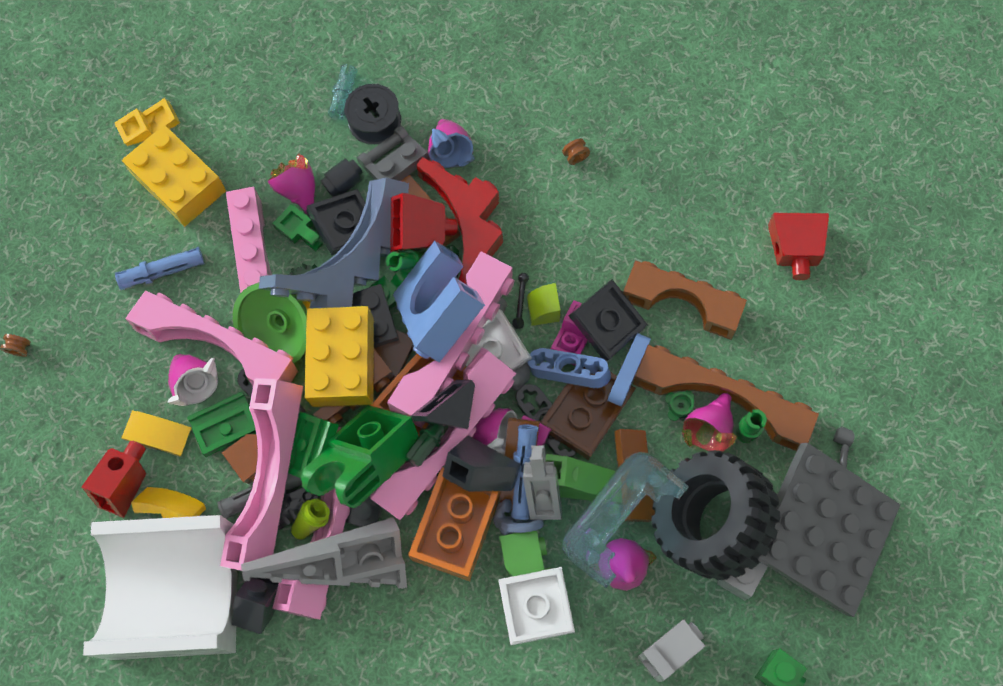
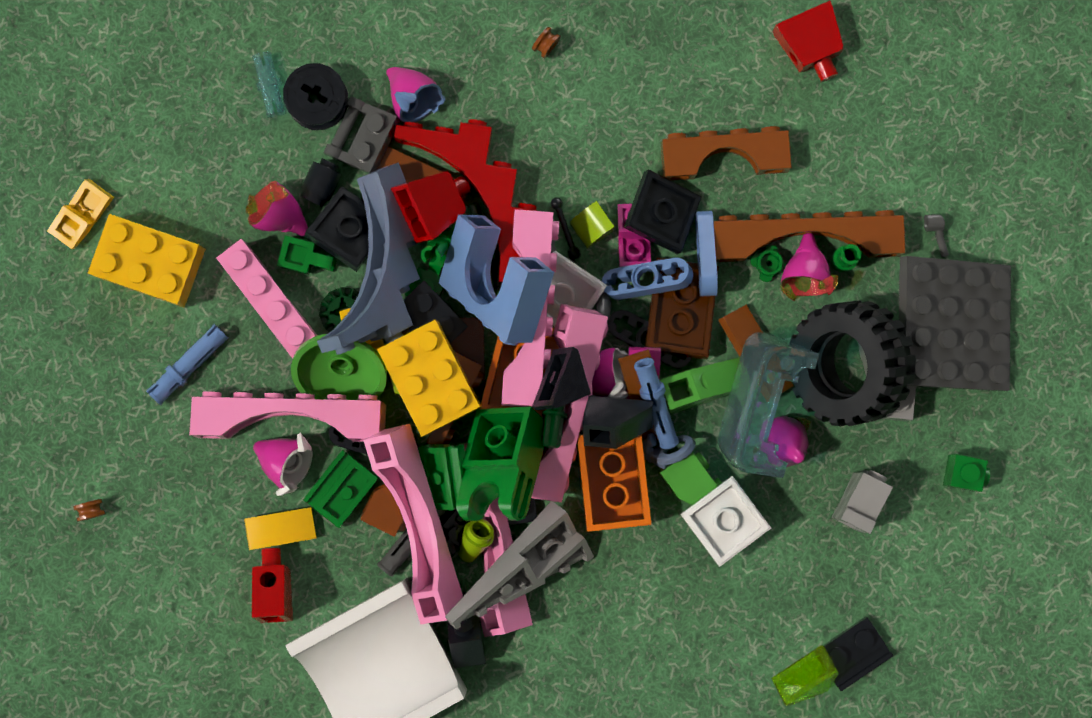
camera: 30 degrees left, 15 degrees up
(167, 503) = (338, 588): yellow slope -> none
(542, 487) = (682, 412): light grey hinge -> none

